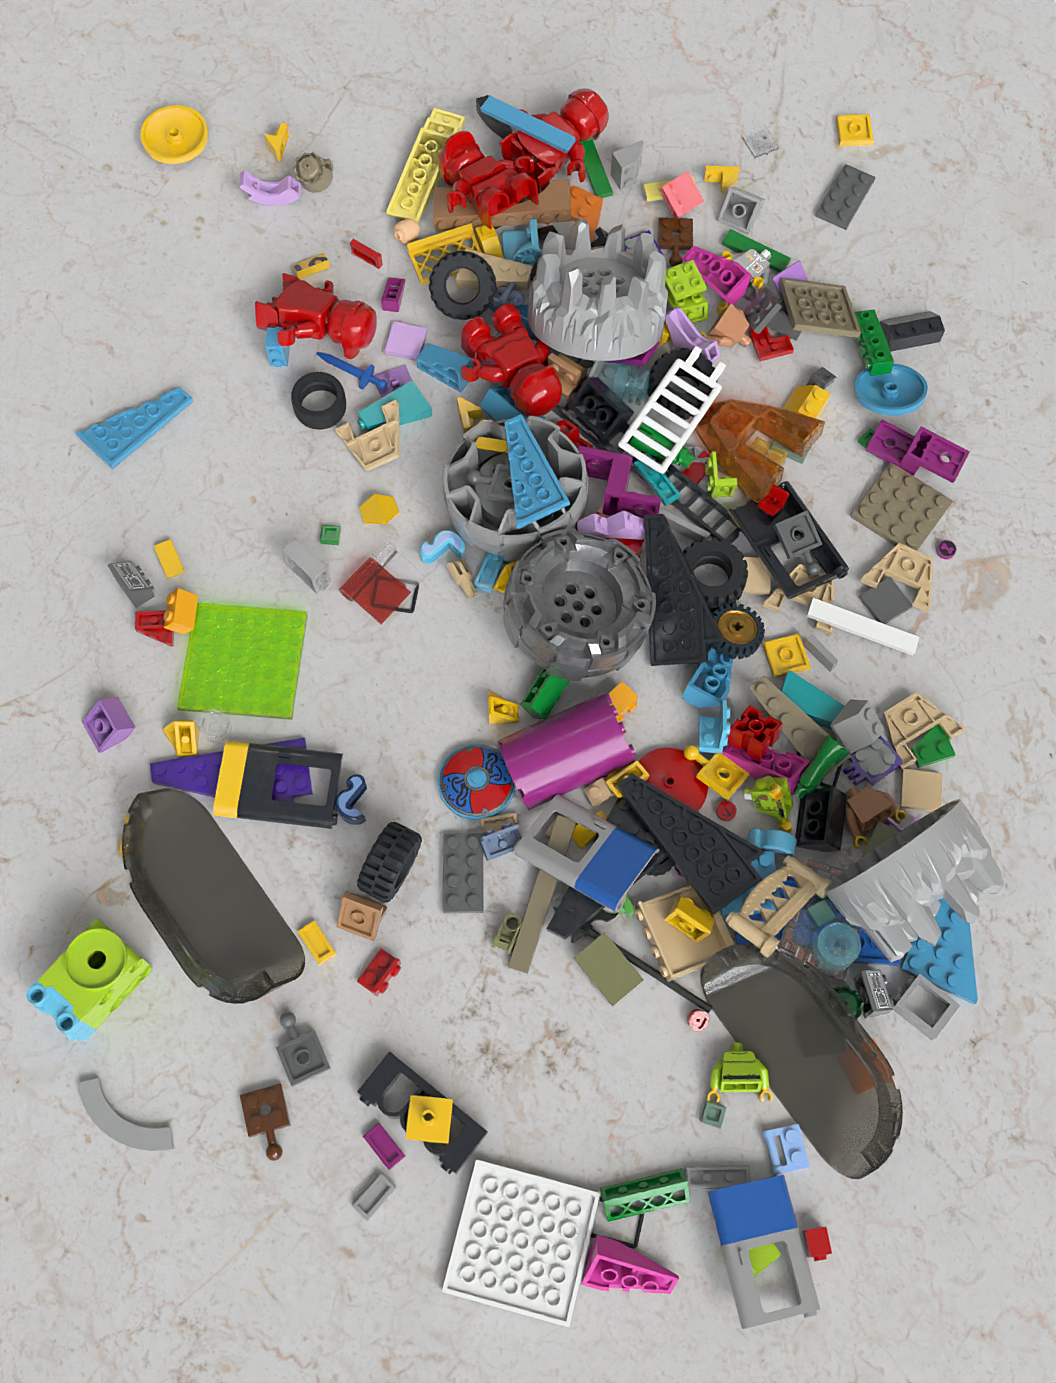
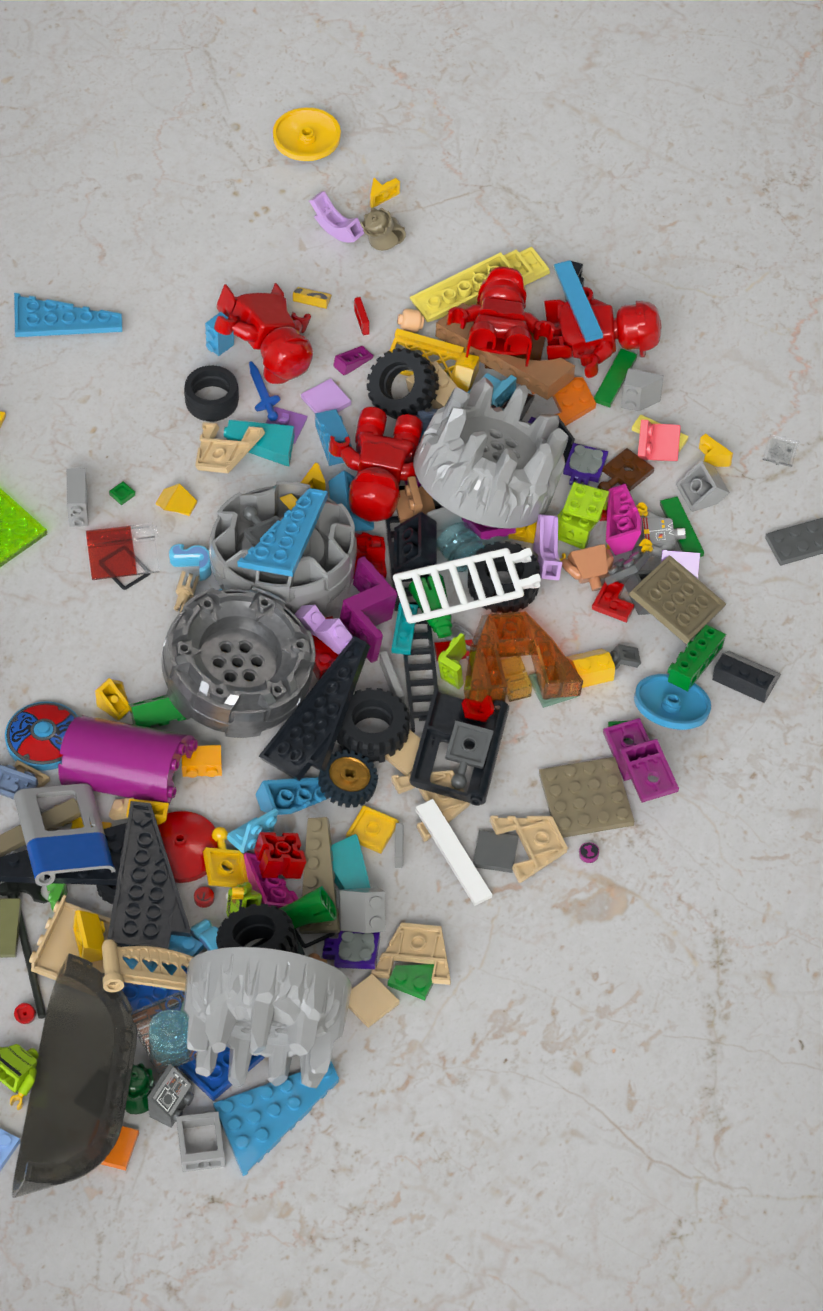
camera: 40 degrees right, 15 degrees down
(826, 794) = (258, 923): none -> black tyre

